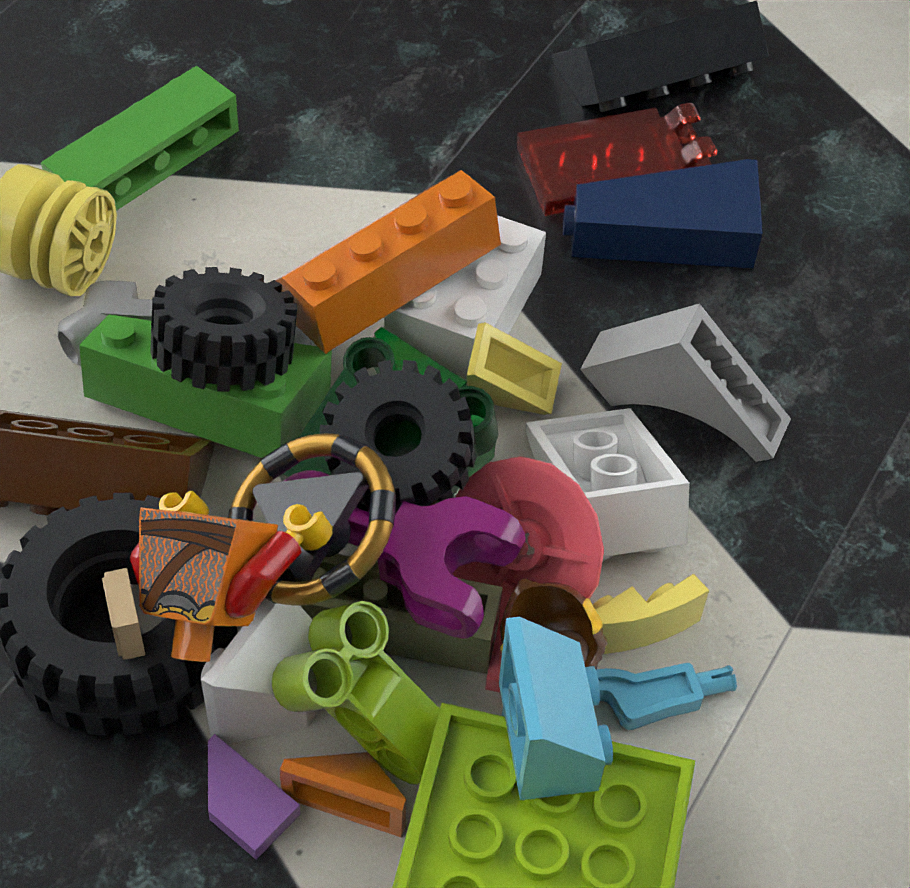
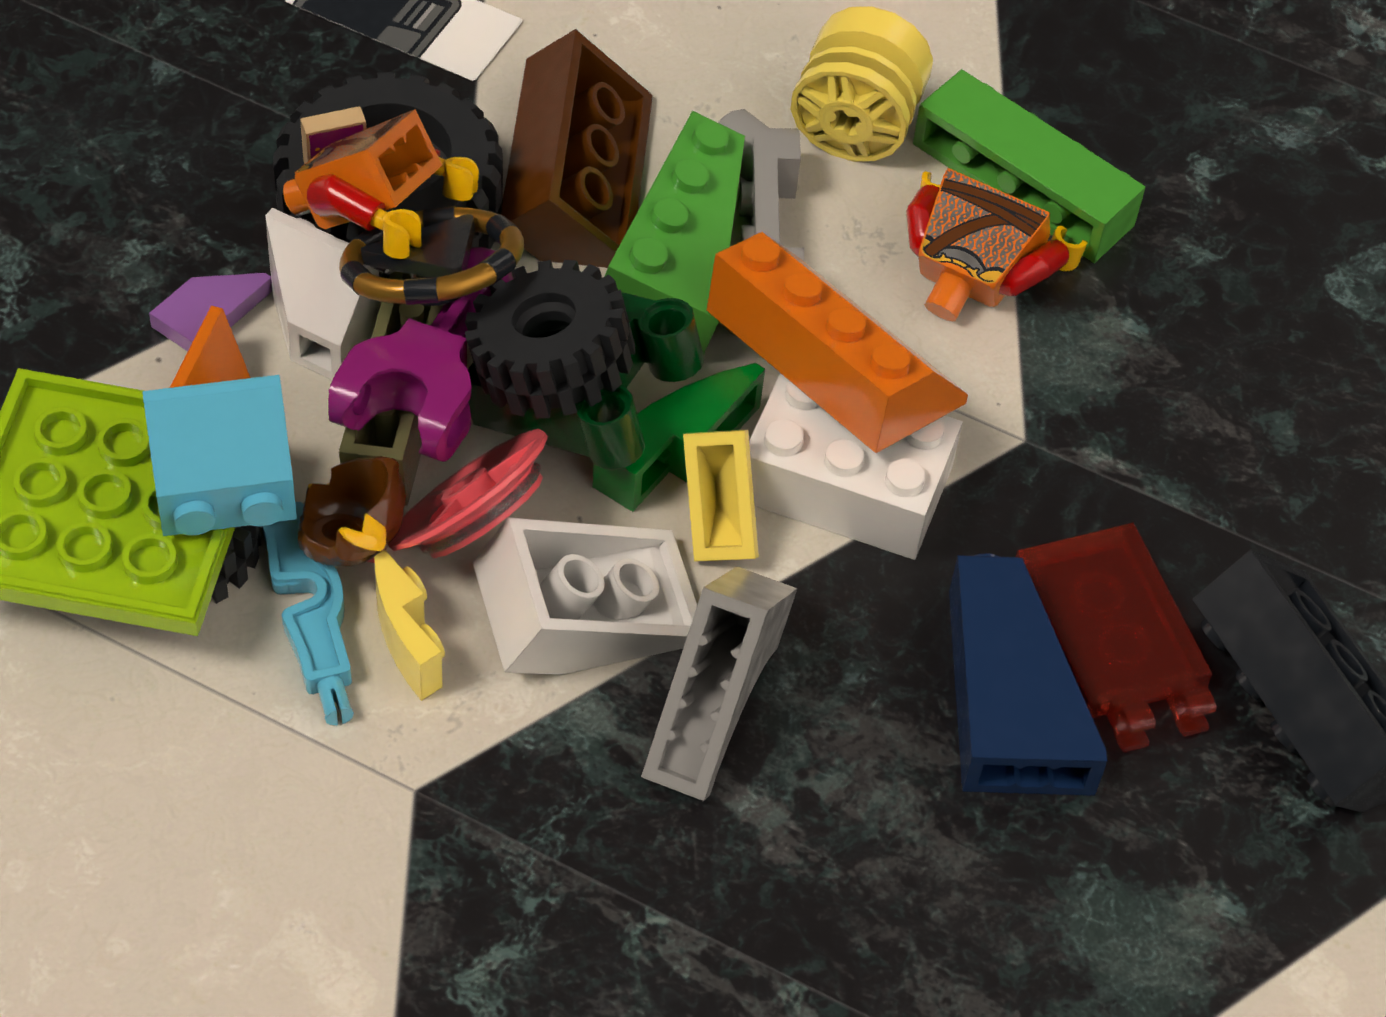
camera: 85 degrees right, 0 degrees up
(223, 328) = (714, 170): black tyre -> none
(231, 185) = (981, 243): none -> torso
(361, 688) = (298, 340): lime piece -> none

